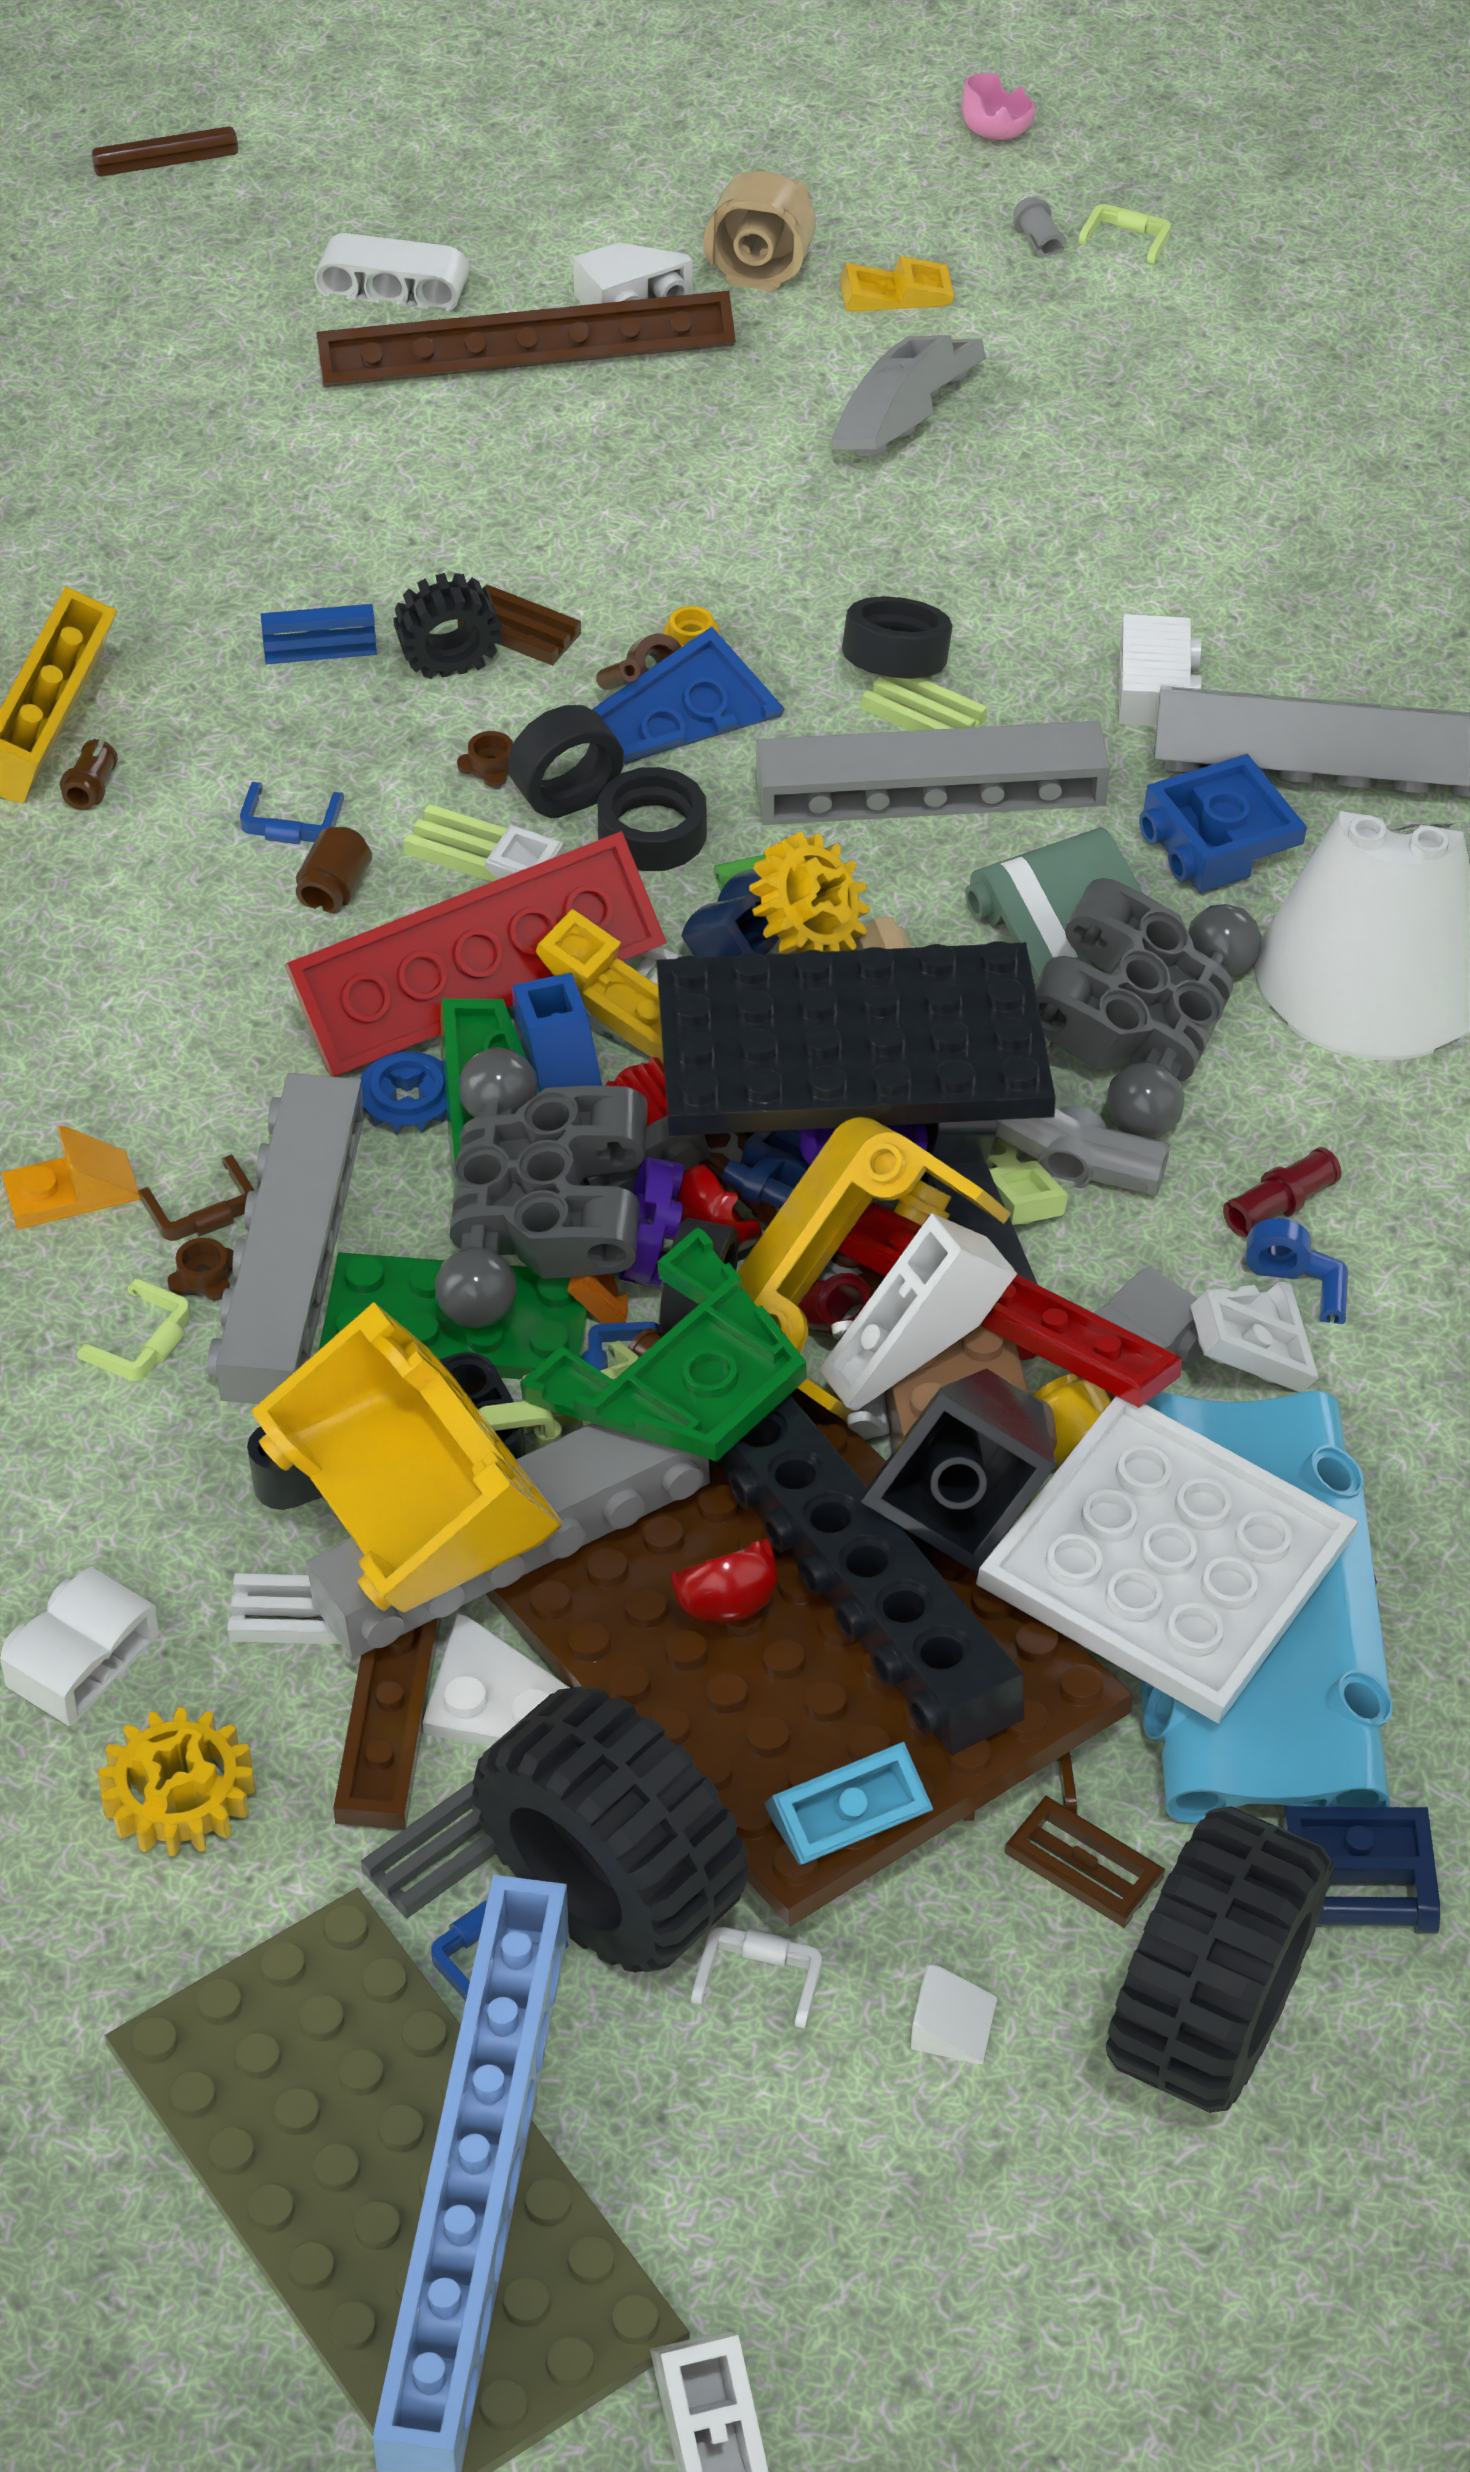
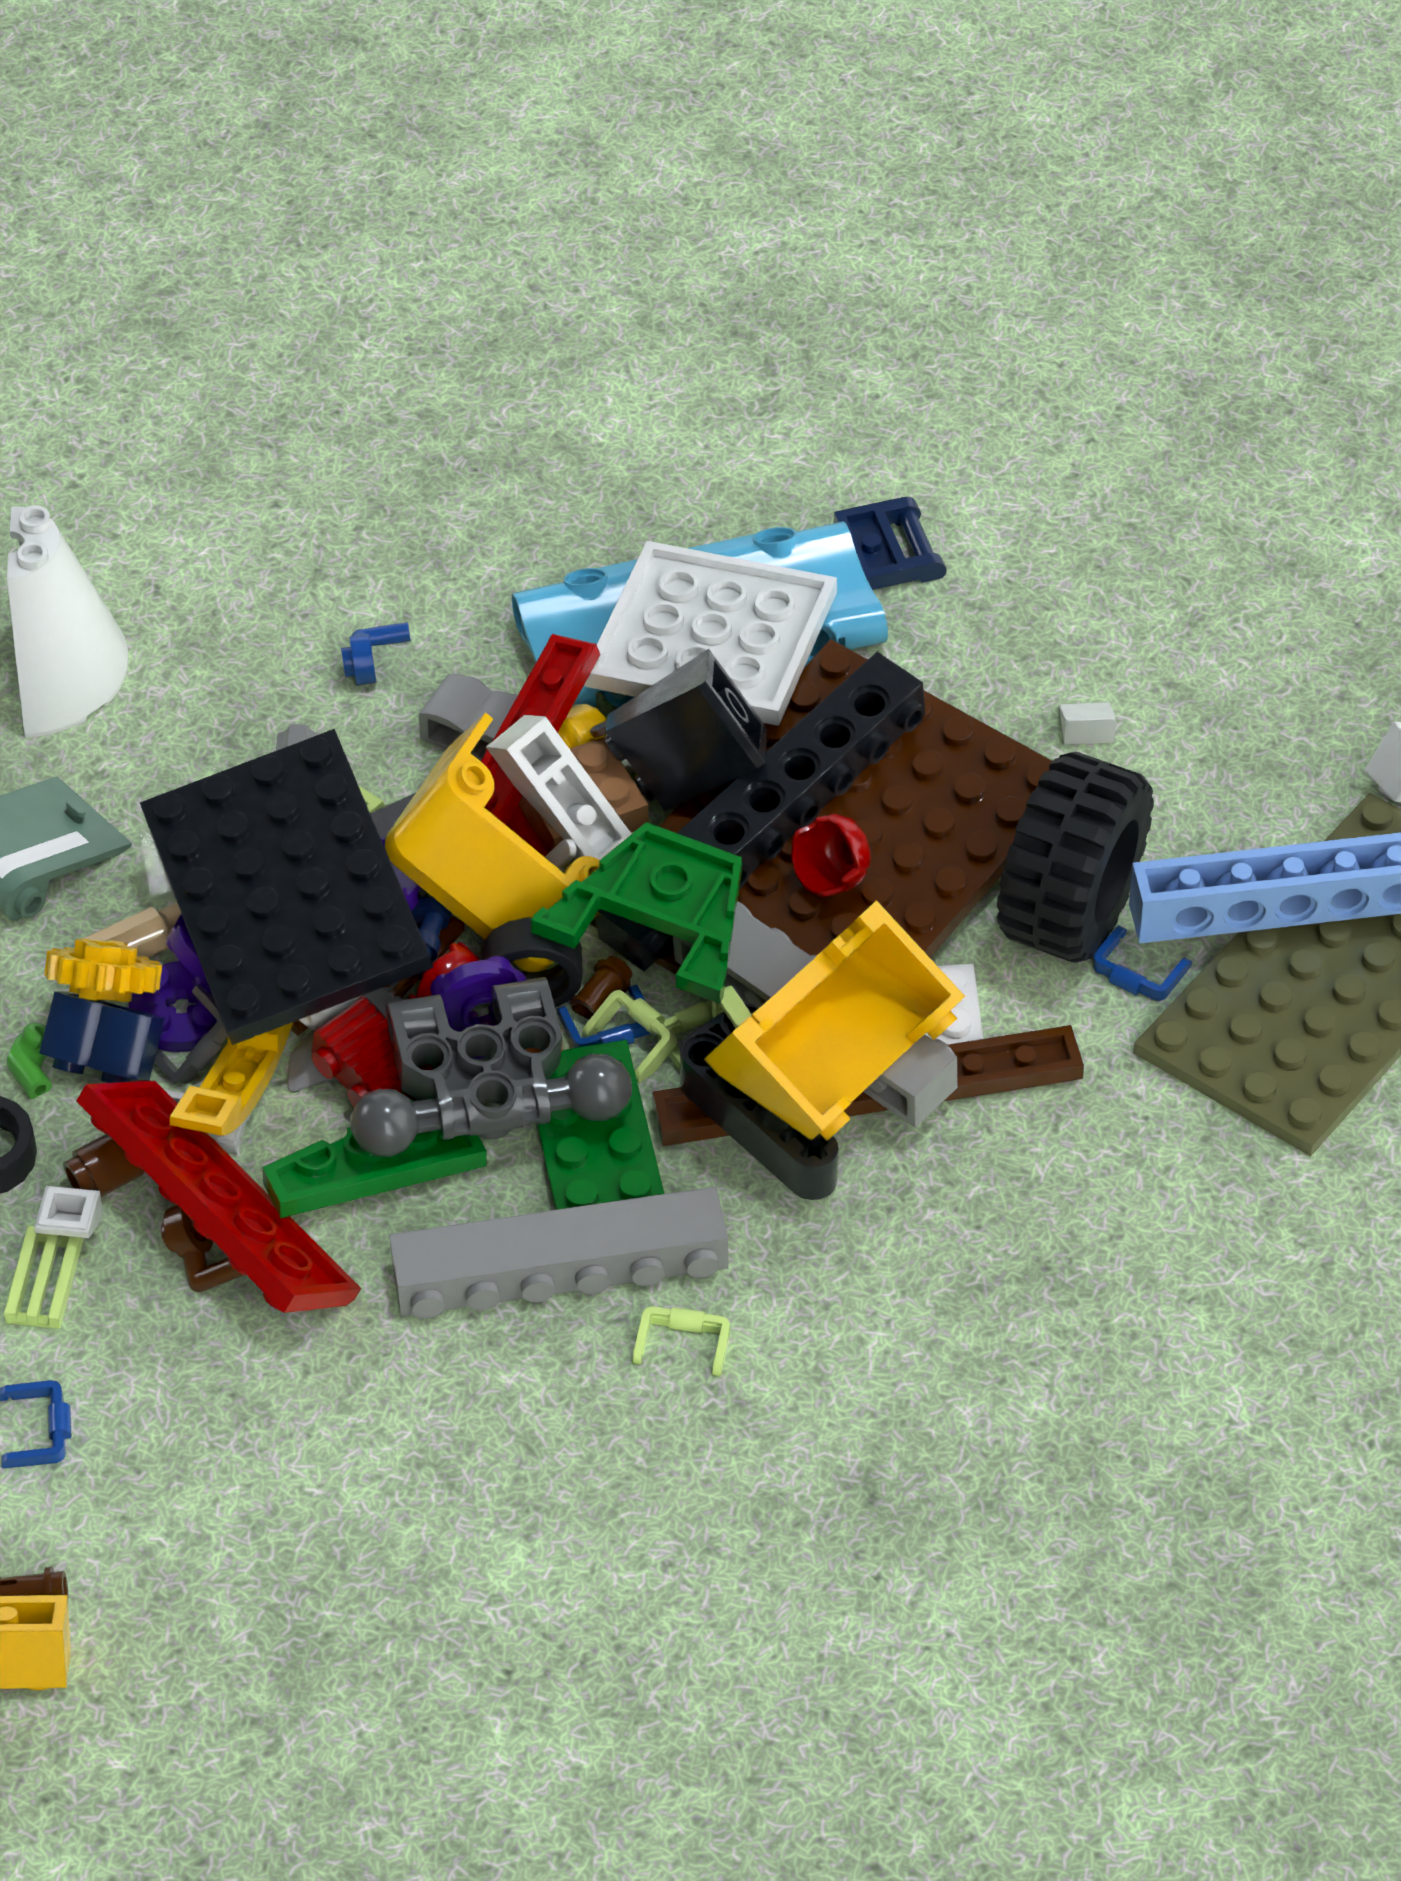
camera: 105 degrees left, 0 degrees up
(78, 1644) = (1007, 1262): white brick -> none
(82, 1181) = (546, 1437): light orange slope -> none
(178, 1782) = (1098, 1166): yellow gear -> none
(197, 1255) = (605, 1299): reddish brown plate -> none
(205, 1219) = (539, 1326): reddish brown piece -> none
(276, 1597) = (924, 1188): white tile -> none
(333, 869) = (112, 1357): reddish brown brick -> none
(406, 1072) = (353, 1216): blue gear -> none
(416, 1834) = (1083, 1006): dark grey tile -> none
(555, 1032) = (290, 1121): blue slope -> none
(849, 1804) = (989, 752): medium azure slope -> none
(1071, 1881) = (951, 650): reddish brown tile -> none
(1154, 1002) = (121, 758): dark grey connector -> none
(1218, 1958) = (1040, 501): black tyre -> none
(1256, 1333) = (458, 652): white wing -> none
(1282, 1191) = (298, 670): dark red pin -> none

